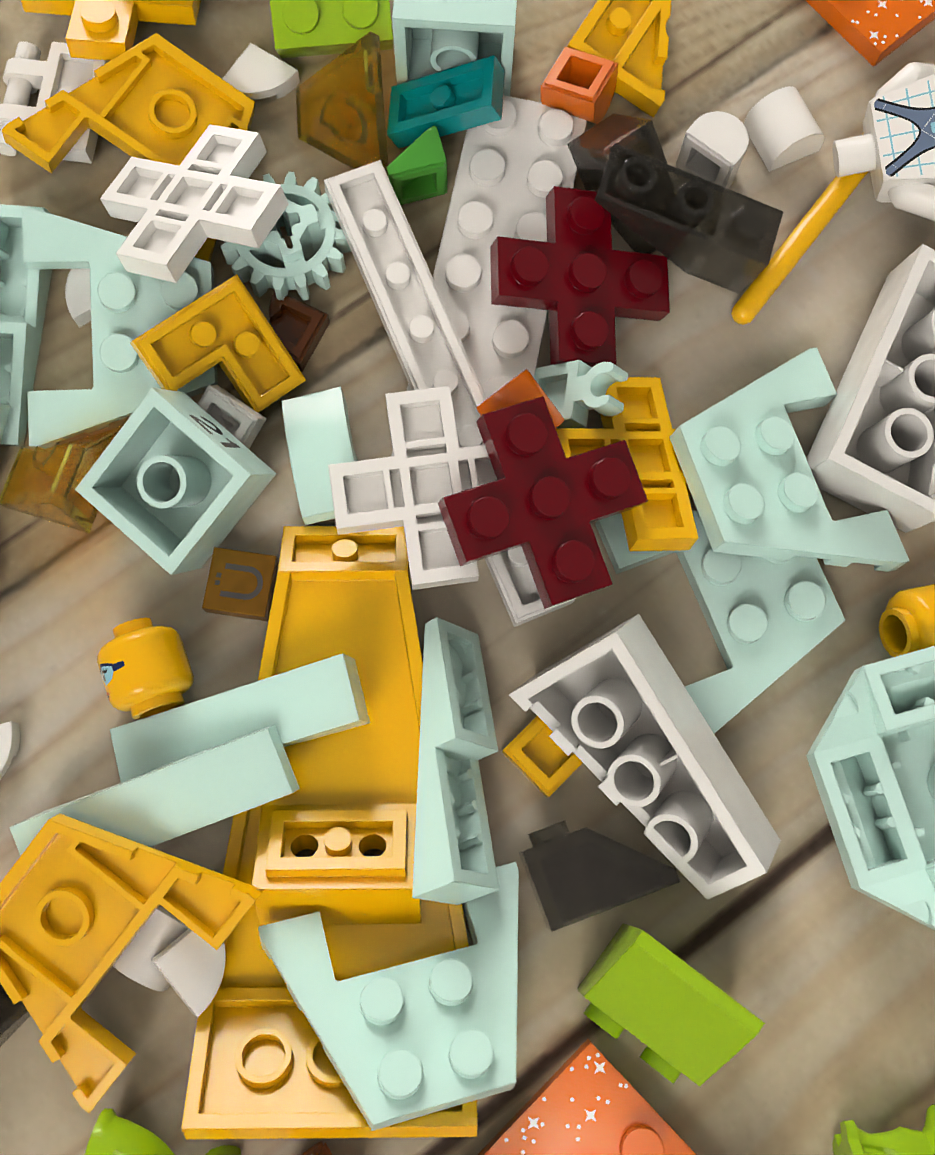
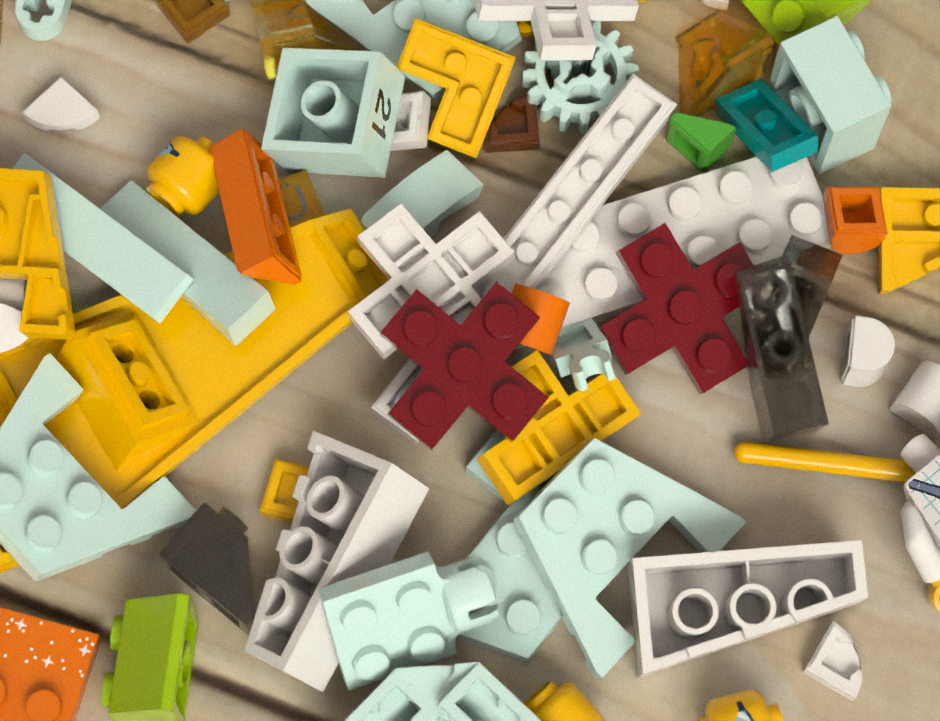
camera: 60 degrees right, 5 degrees down
(235, 619) = (254, 209): none -> orange slope
(456, 730) = (259, 413): light aqua slope -> none
(764, 709) = (405, 615): none -> light aqua plate

